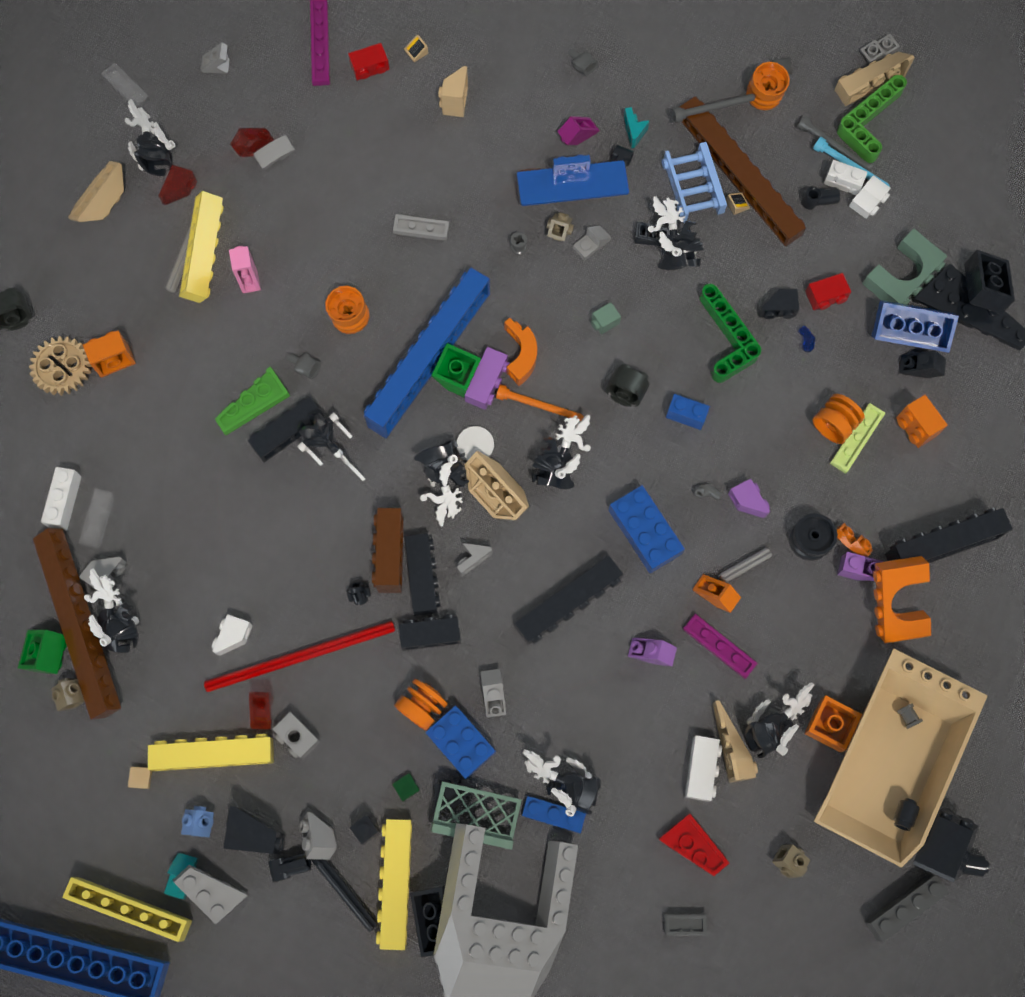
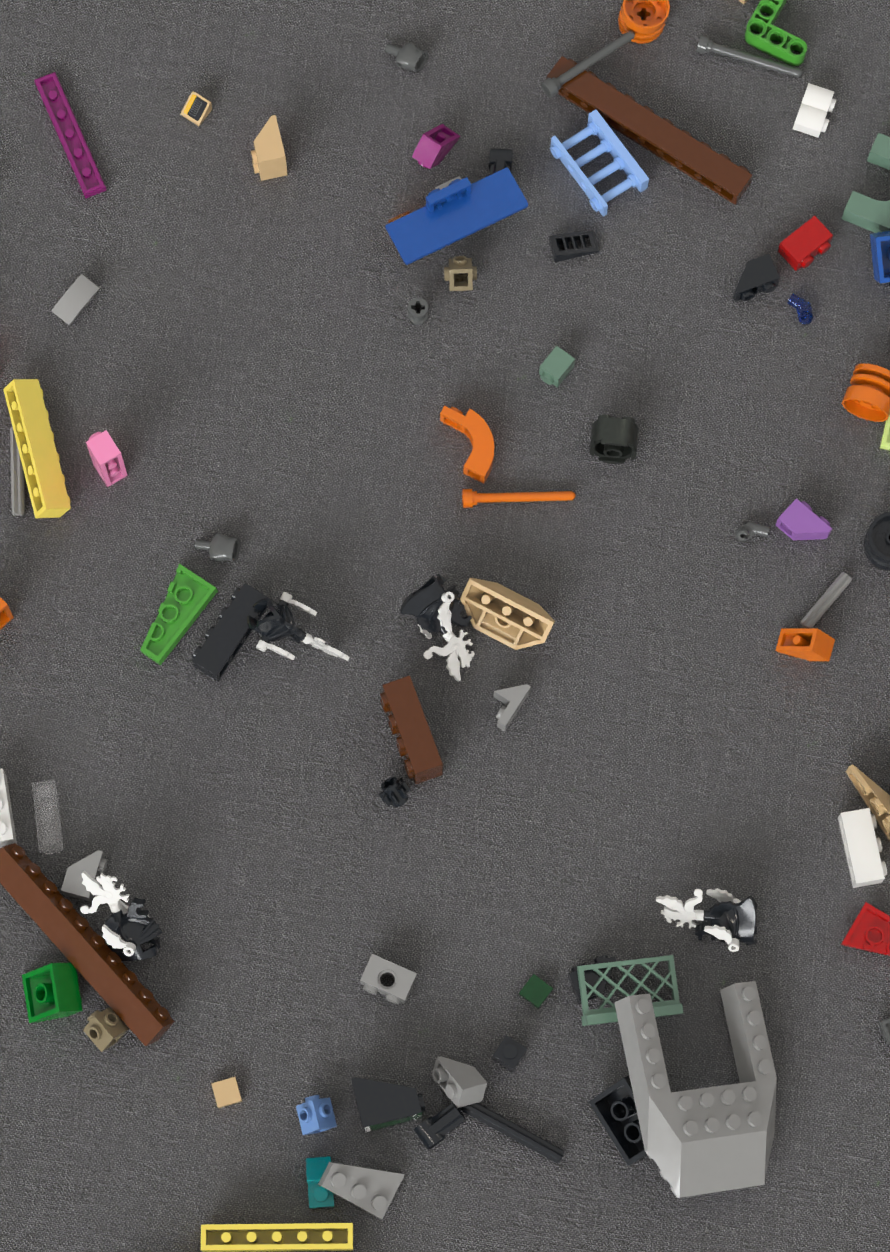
camera: 20 degrees left, 0 degrees up
(210, 753) = (299, 1034): light yellow brick -> none
(232, 635) = (268, 892): white slope -> none
(250, 140) = (41, 295): clear red slope -> none
(260, 710) = (336, 964): clear red slope -> none
(299, 656) = (354, 889): red axle -> none
(346, 300) = (247, 451): orange wheel -> none
(369, 61) = (145, 145): red brick -> none
(395, 885) = (568, 1100): light yellow brick -> none
(421, 227) = (292, 331): light grey plate -> none
(421, 574) = (458, 744): black brick -> none
(421, 704) = (519, 885): orange wheel -> none
(423, 357) = (364, 481): blue brick -> none
(429, 633) = (495, 808): black brick -> none
(455, 369) = (406, 490): green slope -> none
(460, 742) = (579, 918): blue brick -> none
(474, 440) = (458, 567): white tile -> none
(487, 378) = (444, 488): medium lavender brick -> none
(493, 693) = (594, 849): light grey slope -> none
(553, 814) = (713, 960): blue plate -> none
(555, 461) = (568, 562): helmet -> none
(568, 600) = (639, 714): black brick -> none
(591, 242) = (503, 279): light grey slope -> none
(635, 129) = (502, 122): teal slope -> none
(646, 529) = (697, 600): blue brick -> none
(652, 651) = (757, 737): medium lavender slope -> none
(677, 248) = (610, 253): helmet -> none
(687, 412) = (694, 445): blue brick -> none
(720, 646) = (831, 704): magenta tile -> none
(731, 333) = (709, 333): green beam -> none
(737, 203) = (659, 170): tan slope -> none
(820, 197) = (756, 129): black piece -> none
(822, 146) = (735, 65): medium azure piece -> none
(845, 177) = (776, 96): white brick -> none

